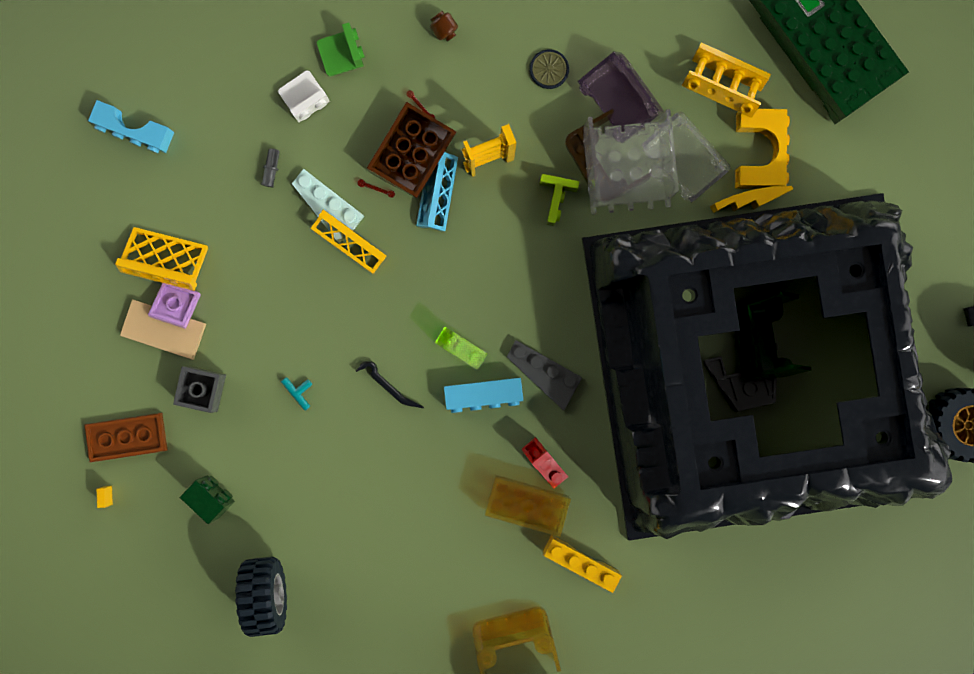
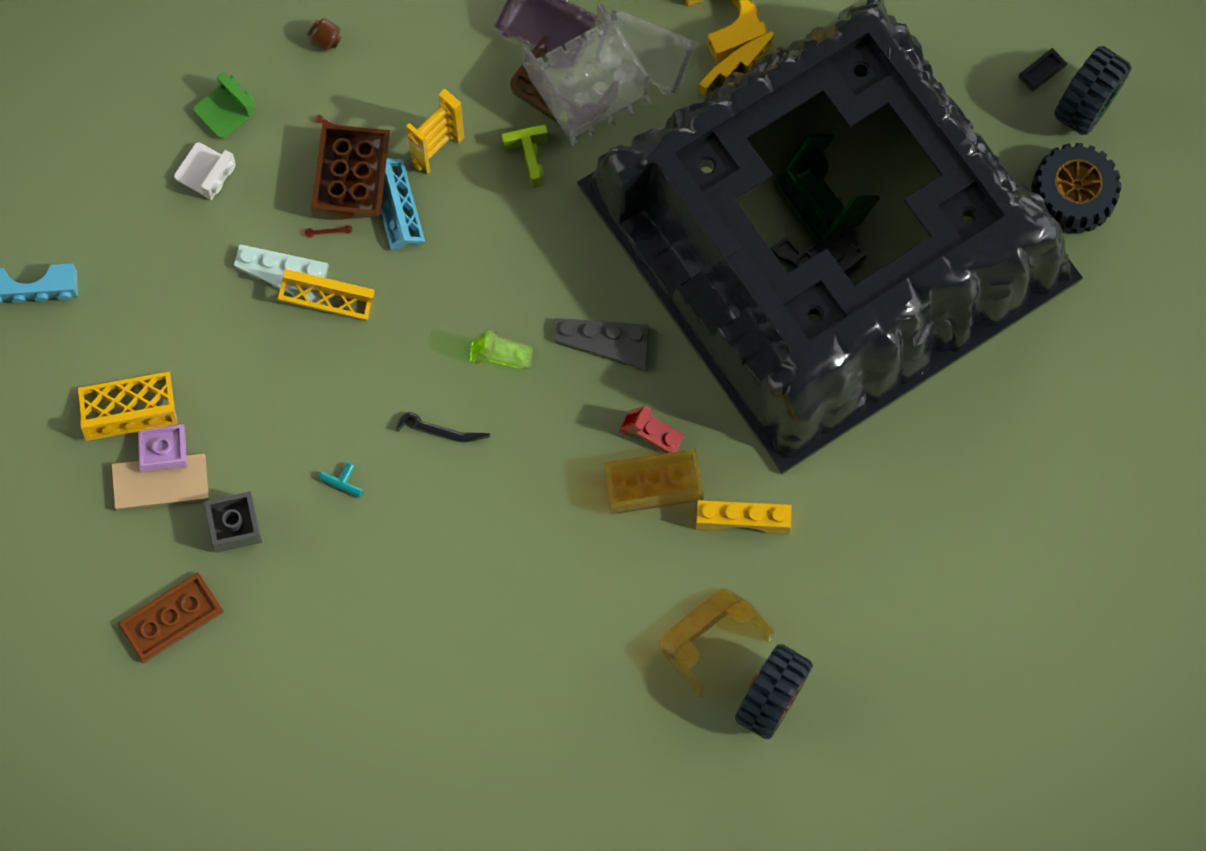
camera: 25 degrees left, 15 degrees down
(104, 497) = (177, 689): yellow tile -> none
(207, 499) = (297, 632): dark green brick -> none
(261, 596) = (408, 701): black wheel -> none
(270, 168) = (203, 260): dark grey axle -> none
(483, 393) = (549, 388): medium azure brick -> none
(549, 69) = (457, 29): olive wheel -> none

